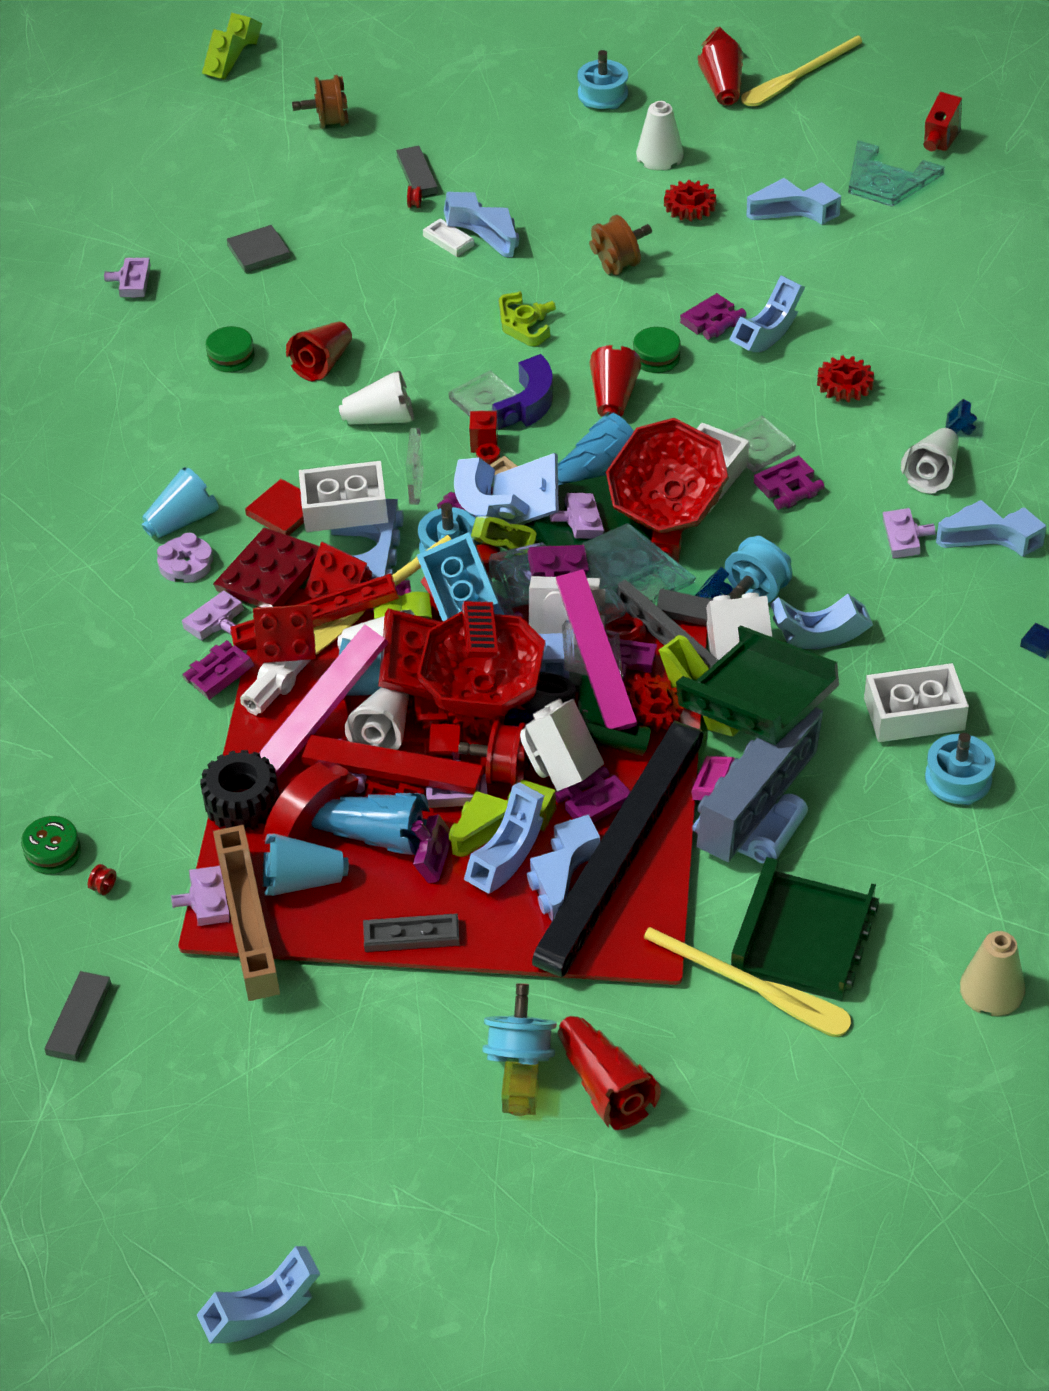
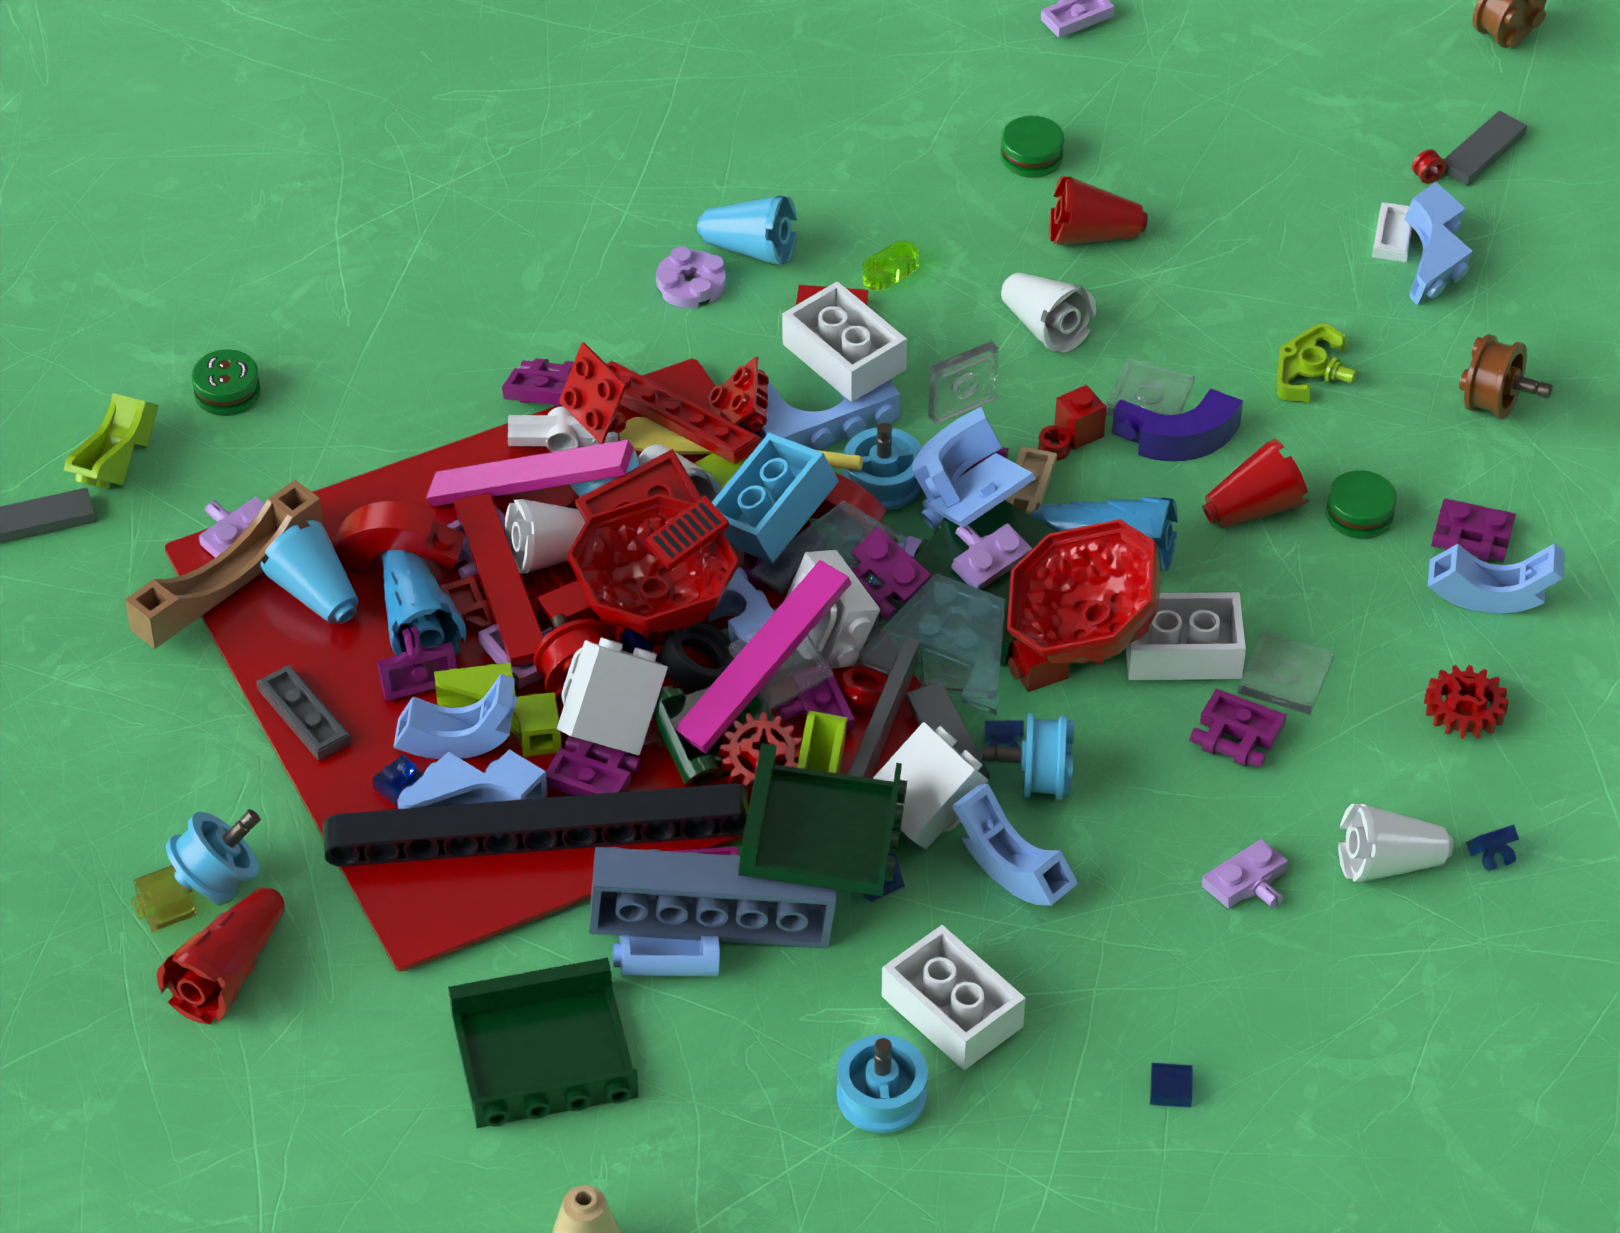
camera: 55 degrees right, 0 degrees up
(64, 936) = (108, 451): none -> lime arch
(102, 879) = (208, 442): red bush -> none
(213, 616) = (627, 342): lavender plate -> none
(235, 773) = (380, 470): black tyre -> none
(258, 248) = (1221, 85): dark grey tile -> none
(268, 569) = (714, 346): dark red plate -> none
(270, 459) = (890, 265): none -> clear neon green beam
(501, 533) = (900, 497): lime brick -> none
(519, 904) = (396, 778): none -> clear blue tile
(800, 1005) = (439, 1089): light yellow piece -> none
(981, 526) = (1312, 941): light blue arch -> none

